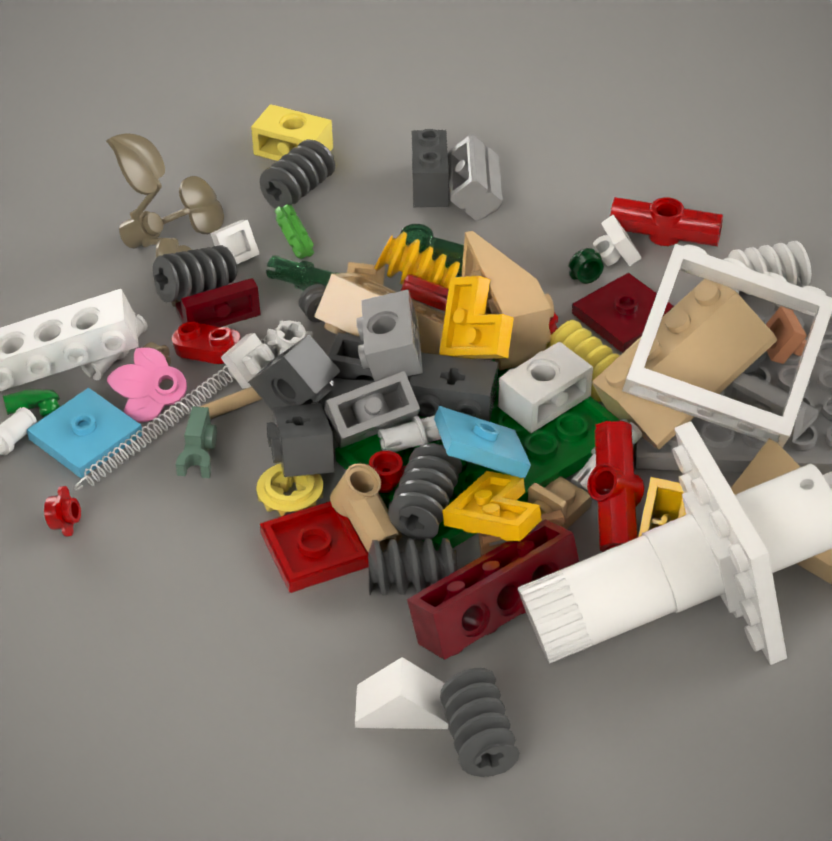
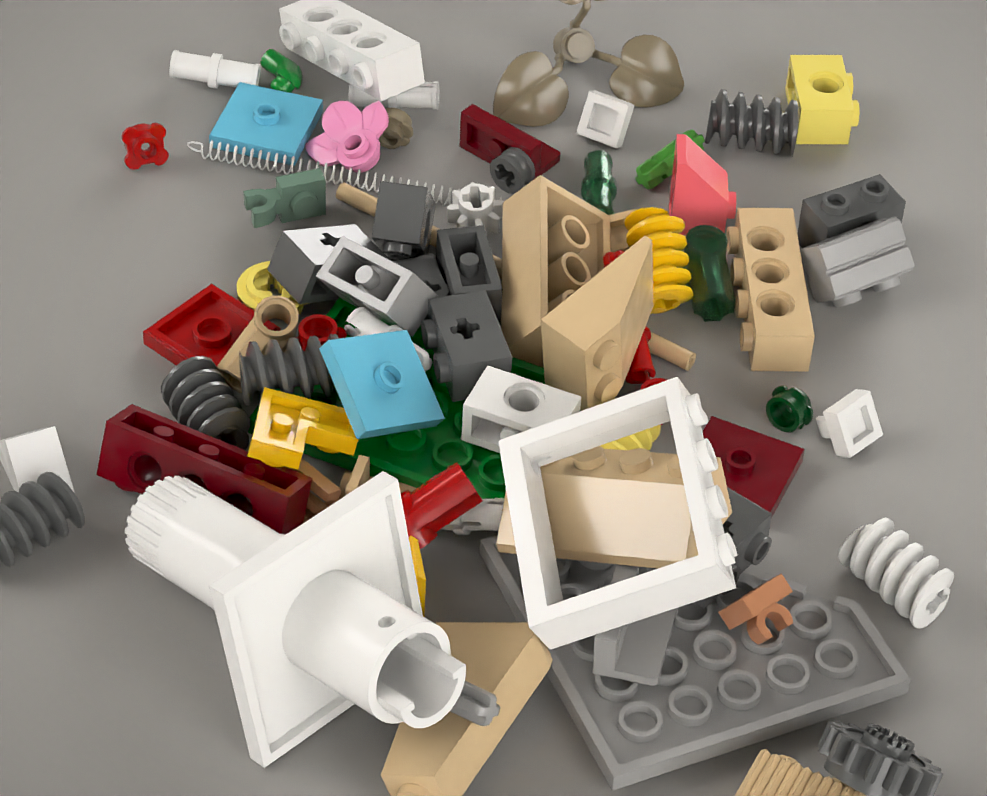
camera: 60 degrees right, 0 degrees up
(193, 272) = (512, 96): dark grey piece -> none
(203, 342) = (441, 155): red plate -> none
(247, 358) = (439, 182): white tile -> none
(256, 302) = (512, 170): none -> dark grey bush
(355, 227) = (699, 188): none -> coral slope
(389, 336) = (477, 253): light grey brick -> none
(451, 216) = (771, 290): none -> tan brick
(467, 328) = (520, 317): yellow plate -> none
(667, 221) = (921, 454): red piece -> none

